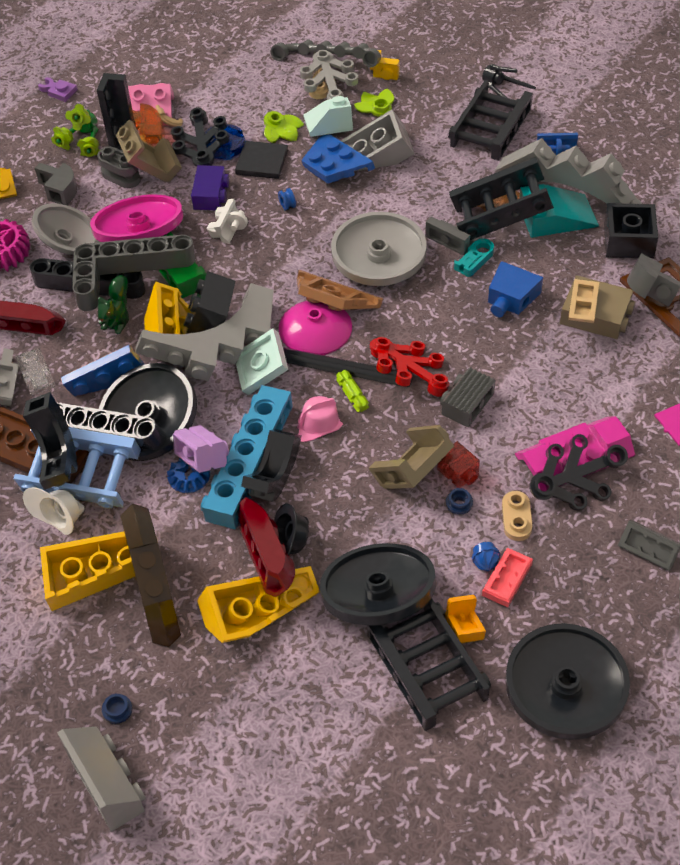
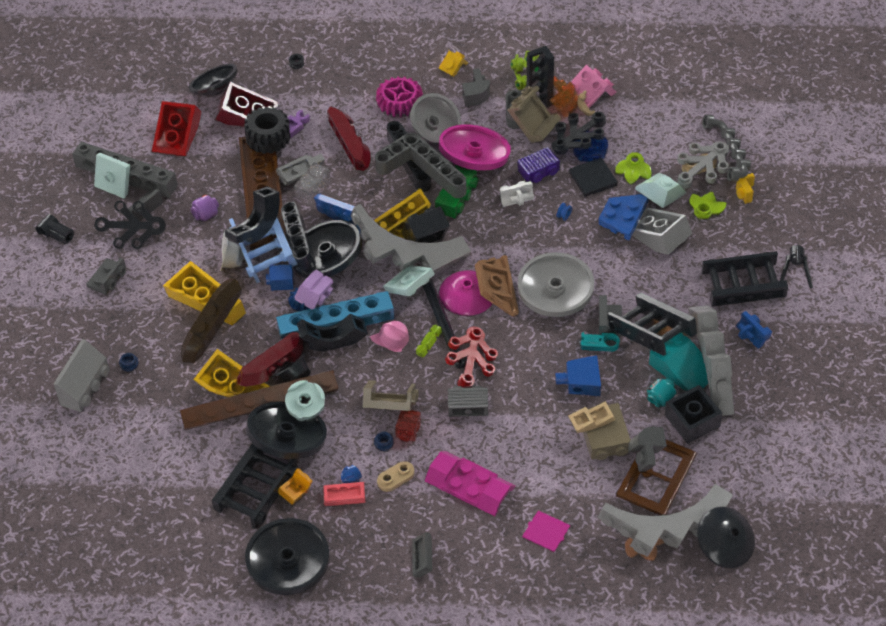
camera: 55 degrees right, 0 degrees up
(60, 90) = (564, 33): medium lavender plate -> none
(113, 312) = (392, 185): dark green animal -> none
(141, 476) = (280, 277): none -> blue brick
(301, 597) = (247, 402): none -> reddish brown plate
(349, 555) = (308, 390): none -> light aqua plate
(574, 474) = (445, 485): black plant -> none
(580, 242) = (661, 391): none -> teal head

